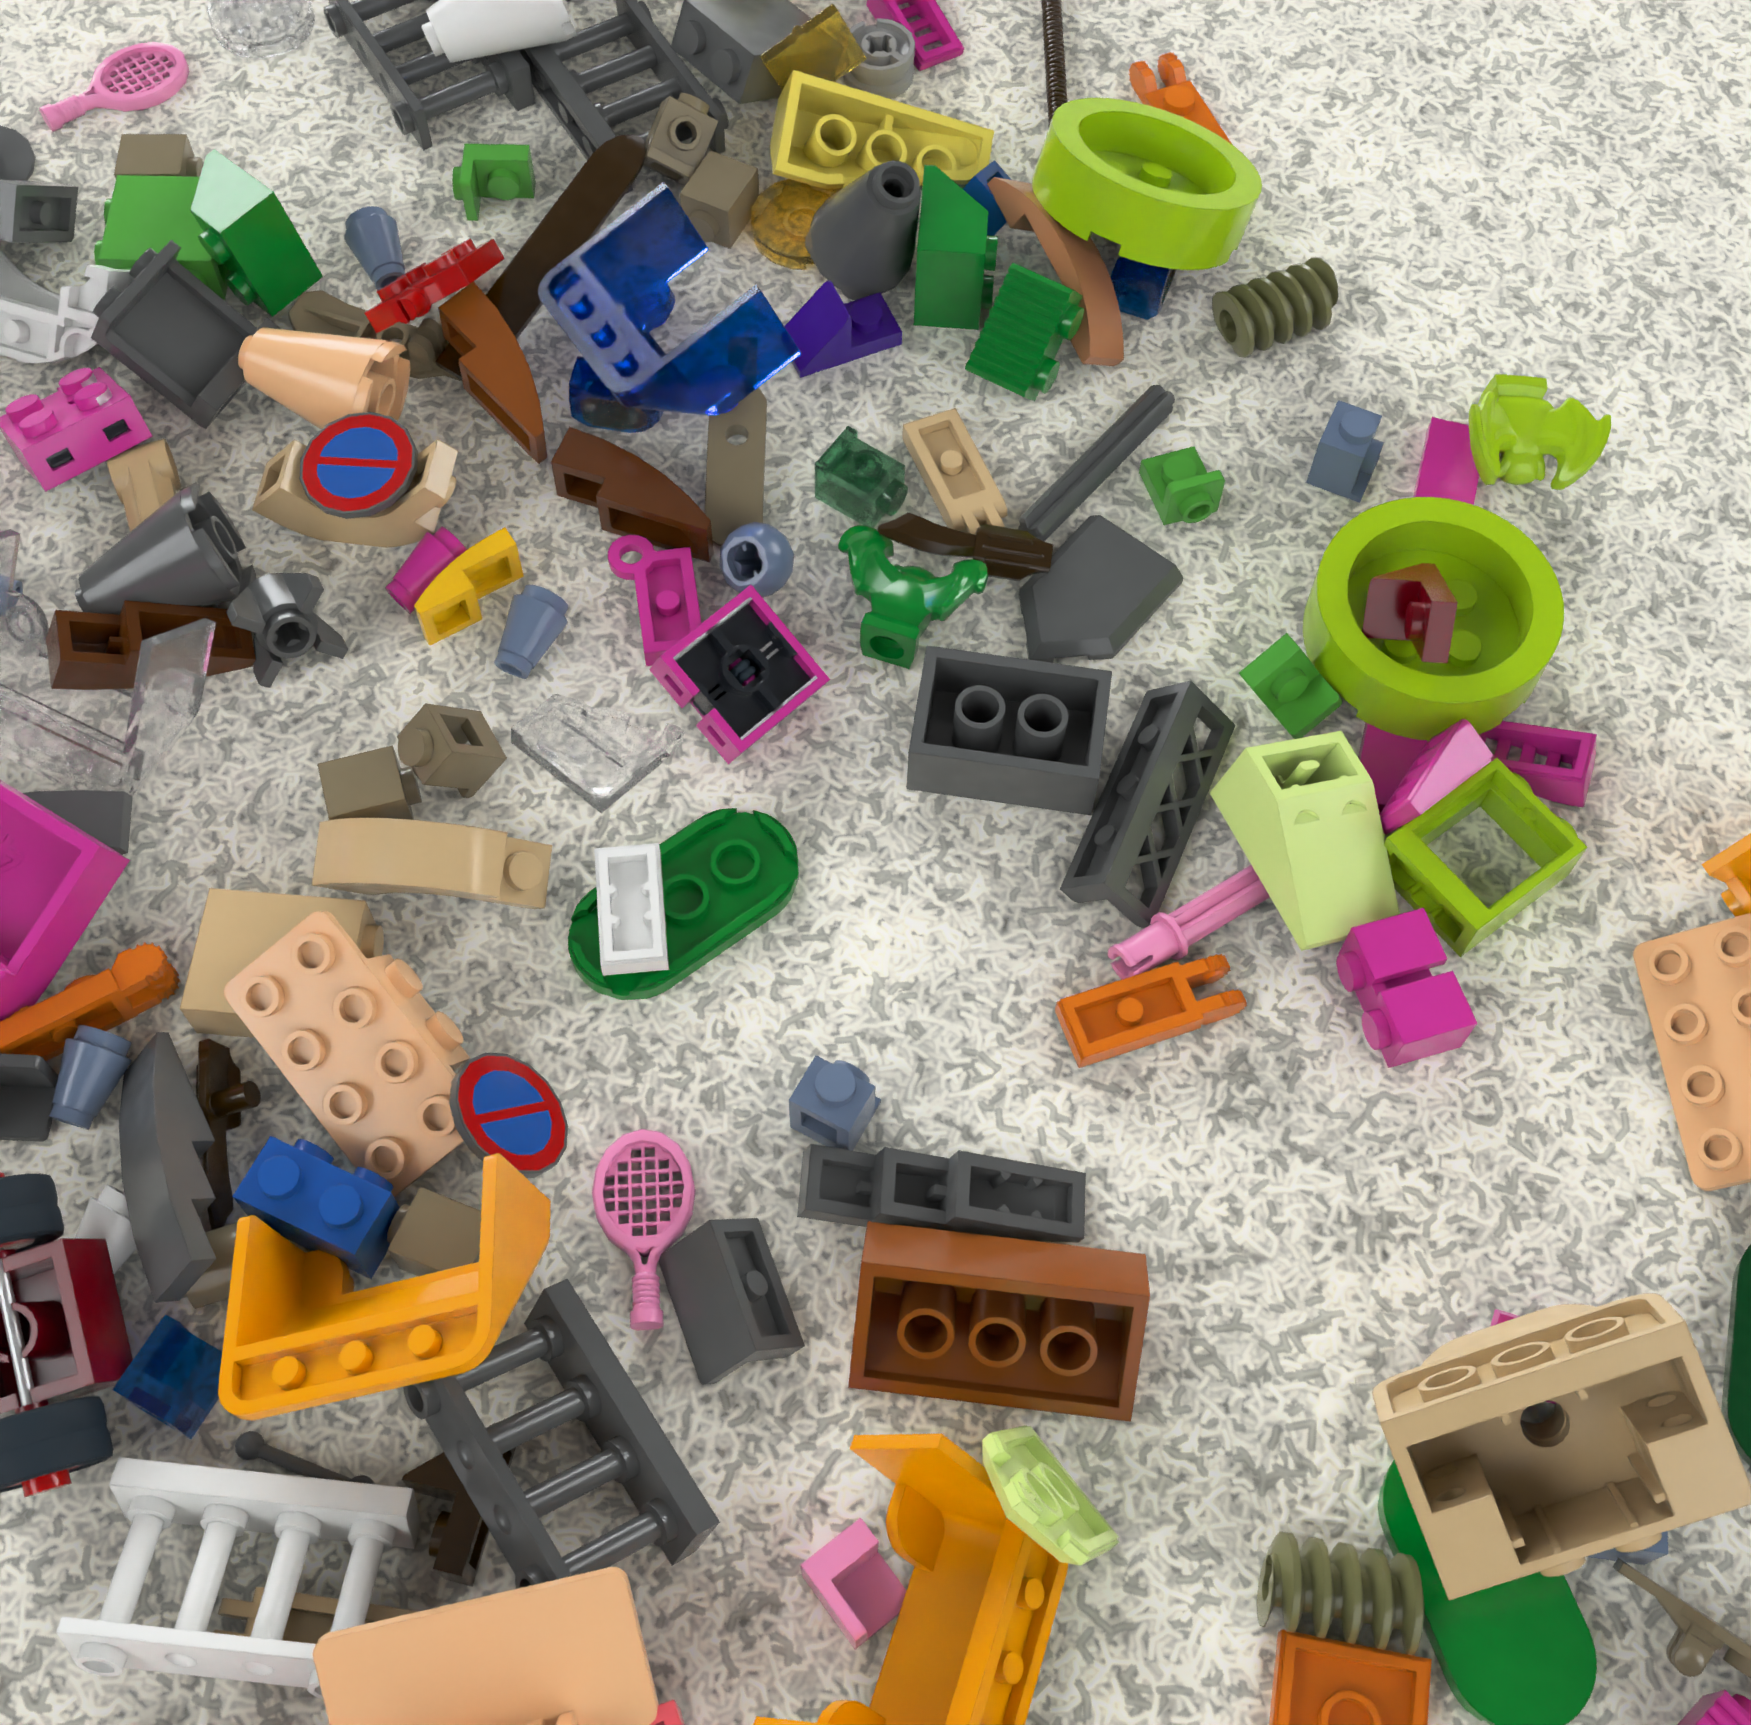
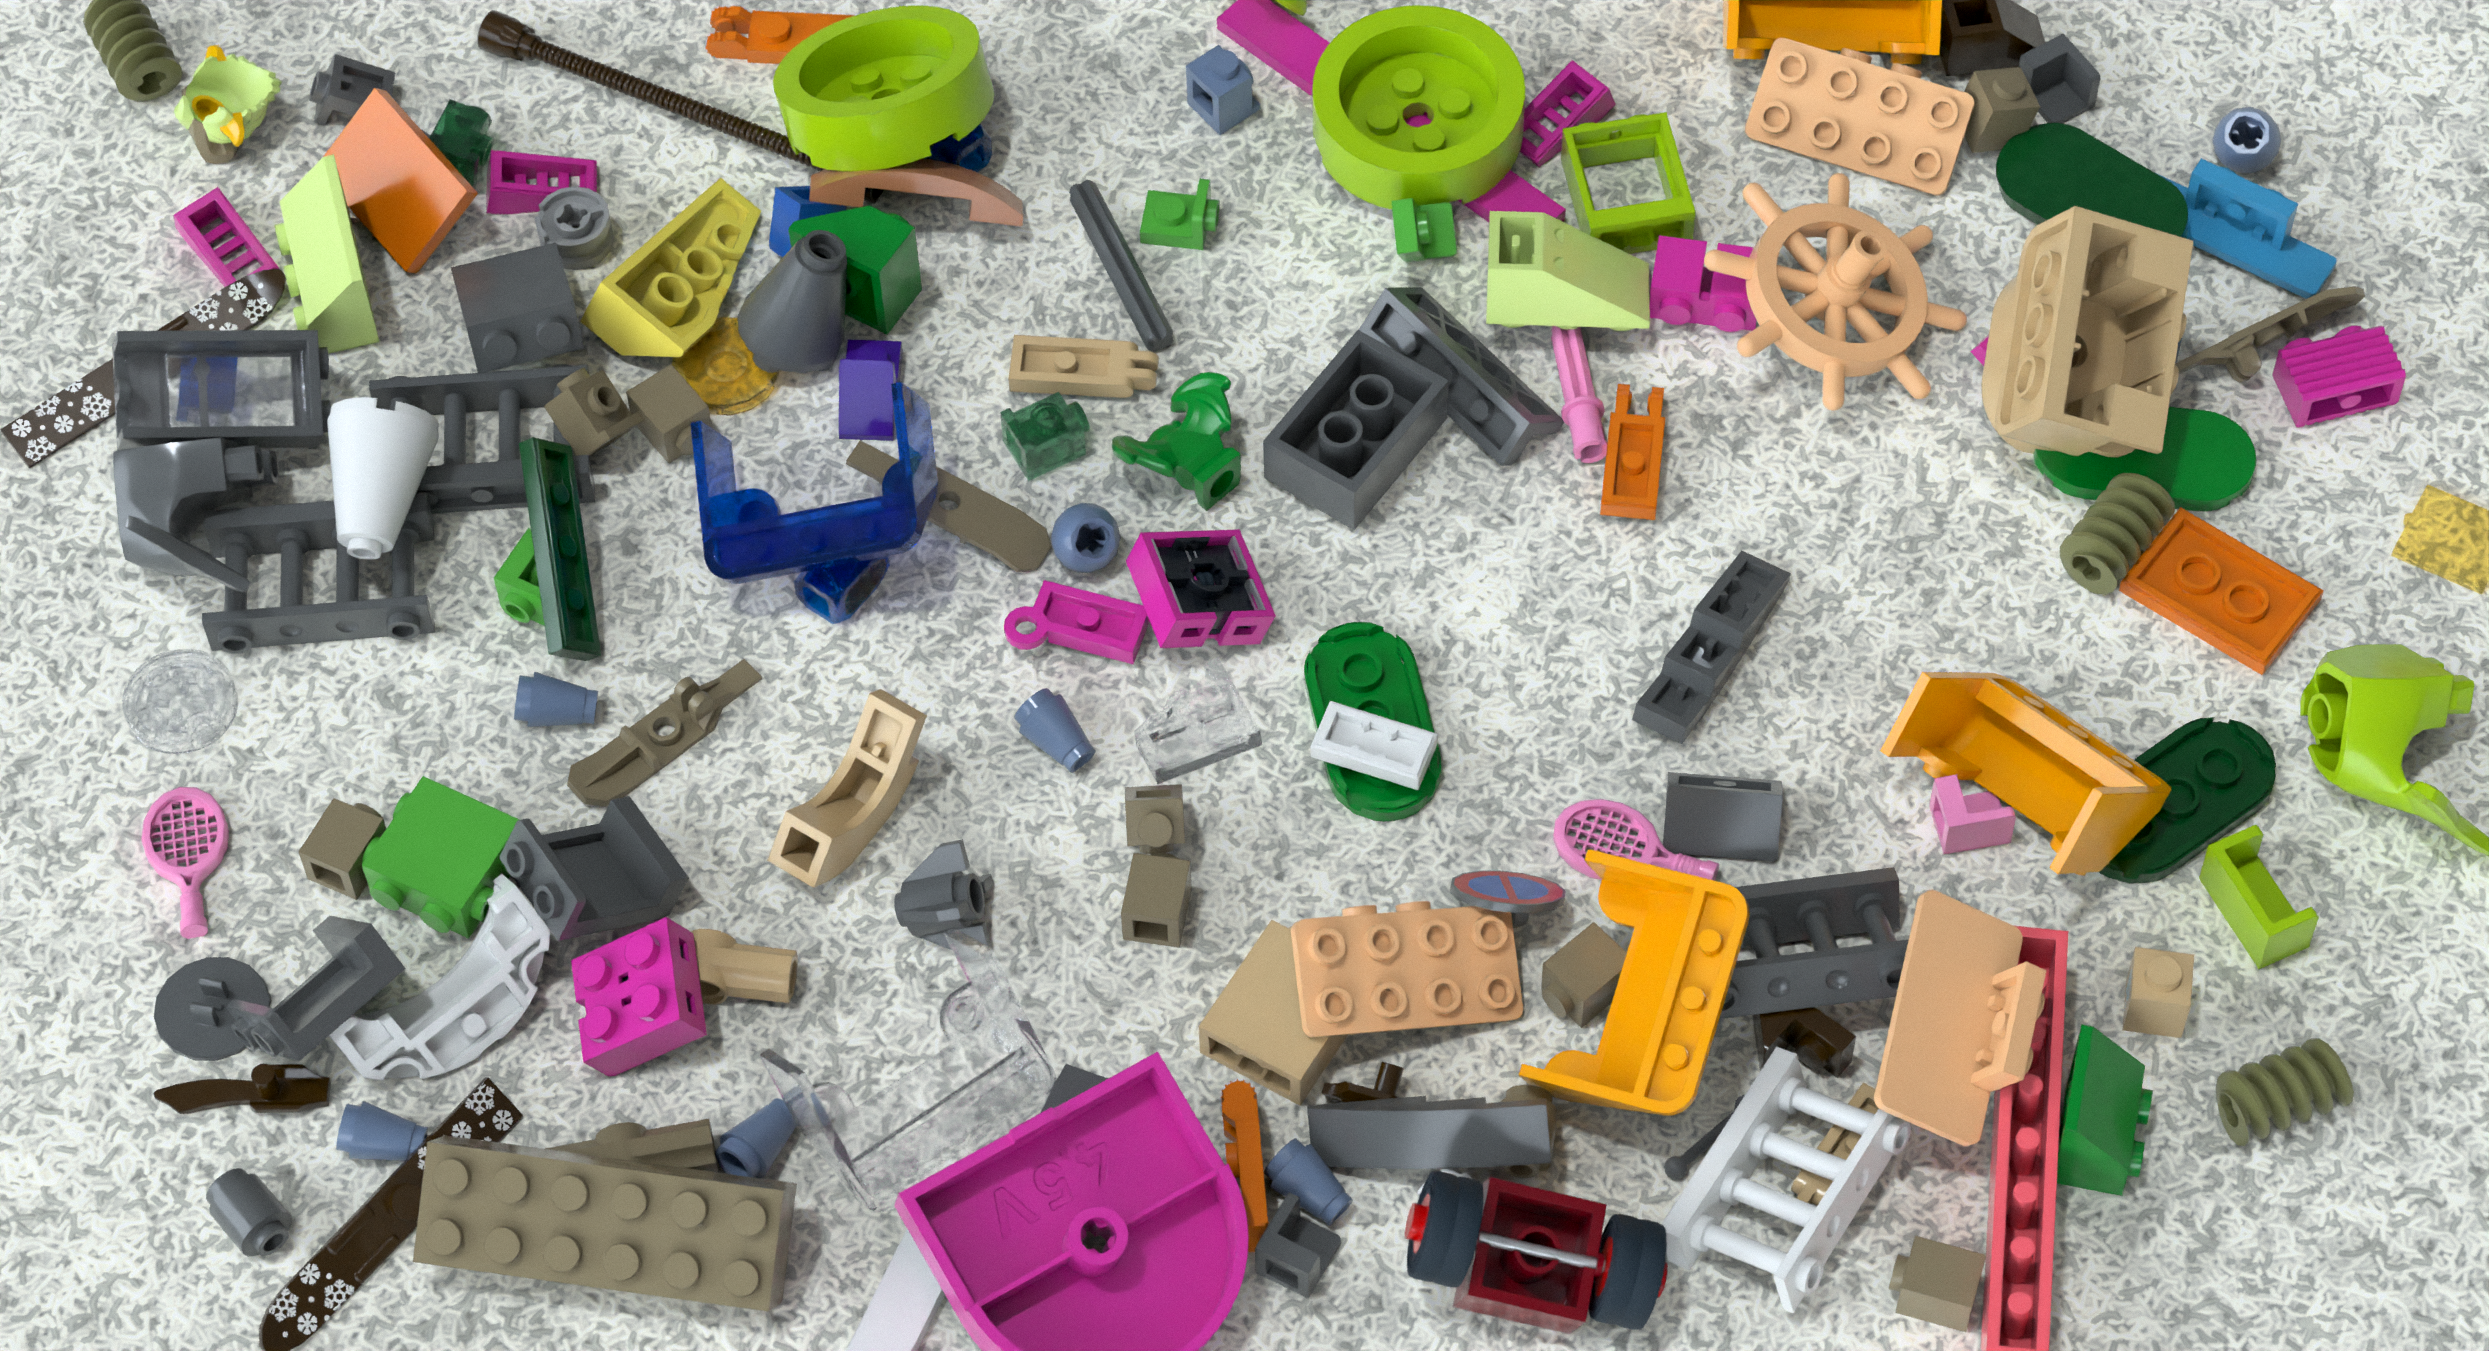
camera: 60 degrees left, 5 degrees down
(104, 649) = (906, 1020): reddish brown slope -> none
(172, 557) = (841, 965): dark grey cone -> none
(173, 1377) = (1606, 1185): clear blue panel -> none
(251, 236) = (509, 770): green slope -> none
(319, 1203) = (1526, 1030): blue brick -> none
(326, 373) = (720, 772): light nougat cone -> none
(358, 465) = (846, 770): piece -> none
(422, 566) = (948, 780): dark pink cone -> none
(426, 284) = (661, 654): red plate -> none
(431, 858) = (1252, 873): tan arch -> none
(453, 595) = (987, 761): yellow slope -> none
(494, 367) = (776, 647): dark orange slope -> none
(518, 170) = (559, 549): none -> dark green tile
(562, 231) = (663, 570): dark brown piece -> none
(629, 494) = (961, 603): reddish brown slope -> none
(817, 48) = (581, 263): clear yellow piece -> none
(833, 1103) = (1604, 671): sand blue brick -> none
(999, 1321) = (1827, 648): dark orange slope -> none
(1005, 551) = (1176, 363): dark brown piece -> none
(1026, 333) = (981, 246): green brick -> none
(1044, 1497) = (1987, 655): yellowish green tile -> none
(1095, 593) = (1243, 325): dark grey tile -> none
(1276, 306) = (1049, 64): olive piece -> none
(1412, 607) = (1432, 101): dark red slope -> none
(1437, 770) = (1552, 175): slope -> none
(1472, 1122) = (1836, 290): none -> light nougat piece

